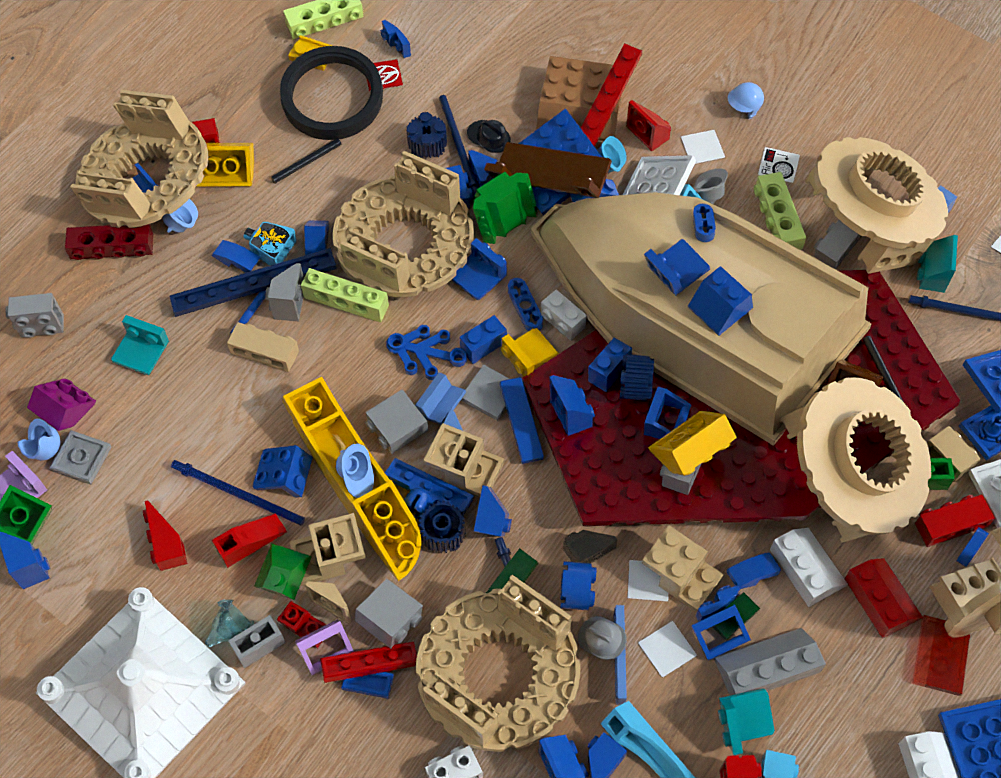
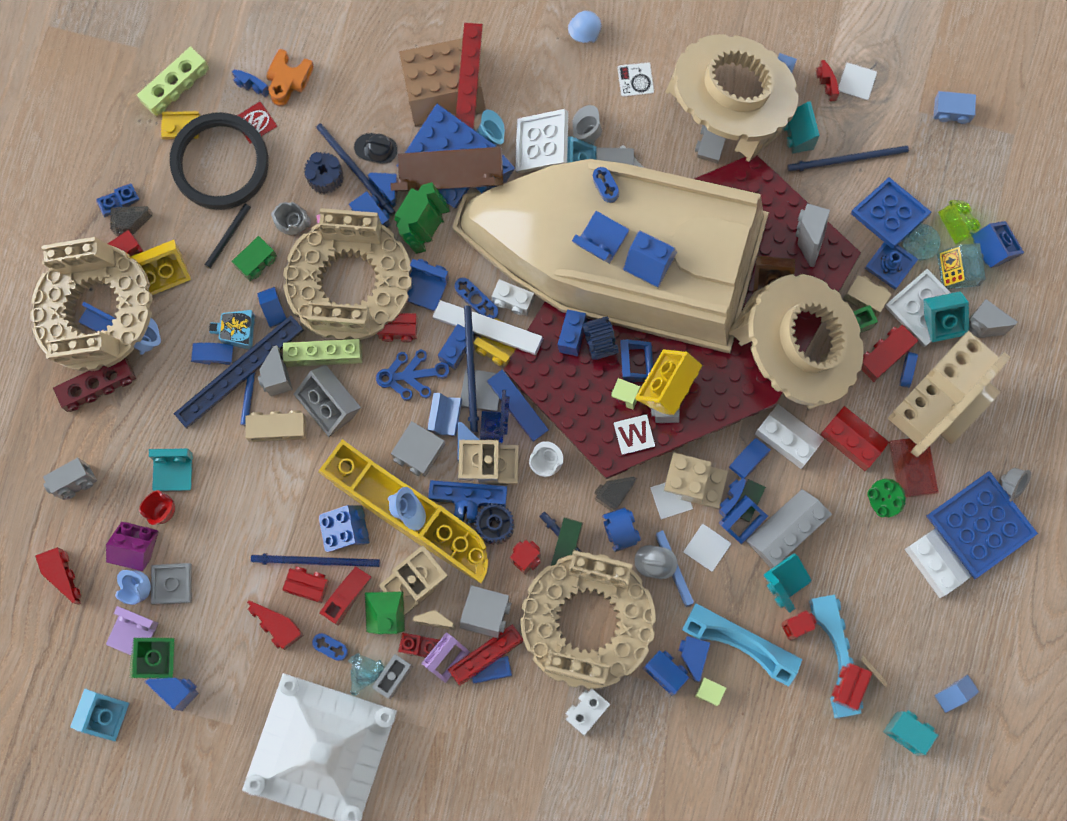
camera: 20 degrees left, 15 degrees up
(105, 376) = (157, 508): none -> red helmet
(212, 583) = (332, 643): none -> blue beam
(214, 511) = (306, 585): none -> red brick
(223, 110) = (128, 219): none -> clear smoke slope
(225, 94) = (122, 197): none -> blue slope
(321, 187) = (254, 258): none -> green brick
(327, 340) = (326, 400): none -> light grey slope
(373, 163) = (290, 218): none -> light grey hair
(431, 47) = (286, 78): none -> orange piece
(436, 302) = (402, 328): none -> red brick
(460, 572) = (526, 556): none -> red brick
(469, 414) = (470, 369): none -> dark blue bar
(490, 427) = (495, 424): none -> clear blue bracket
(491, 514) = (532, 500): blue slope -> none
(526, 333) = (490, 328): none -> white tile
(527, 482) = (546, 459): none -> white helmet
(570, 405) = (556, 383): blue slope -> none
(633, 488) = (634, 434): none -> white sticker
(641, 439) = (626, 392): none -> yellowish green panel
(647, 126) = (511, 87): red slope -> none
(703, 146) = (564, 86): white sticker -> none
(776, 198) = (641, 104): yellowish green brick -> none
(881, 367) = (792, 251): black bar -> none
(900, 684) = (882, 489): none -> green plate
(913, 351) = (811, 231): none -> light grey slope
(984, 231) = (828, 79): none -> red slope

